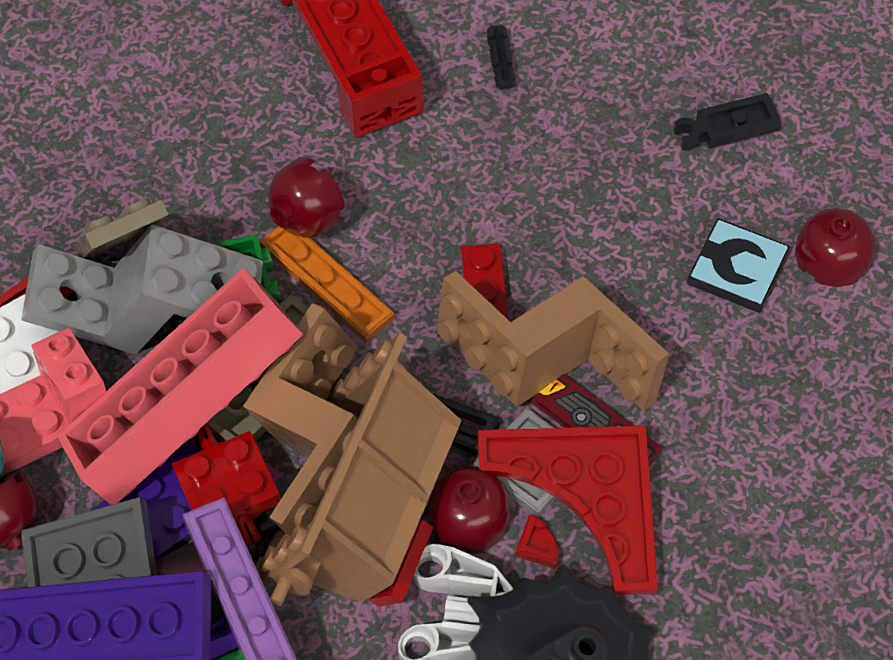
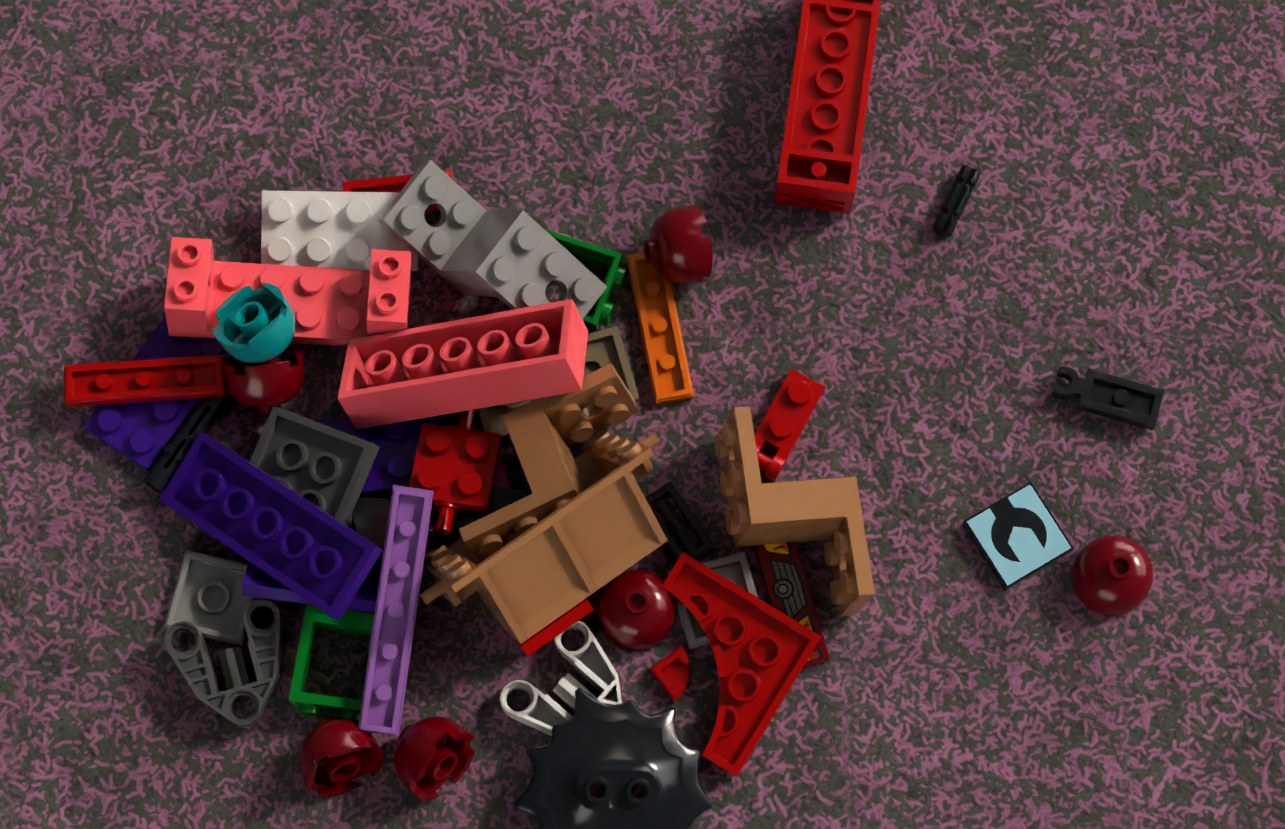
camera: 30 degrees right, 15 degrees up
(107, 233) = (503, 187): dark tan plate -> none

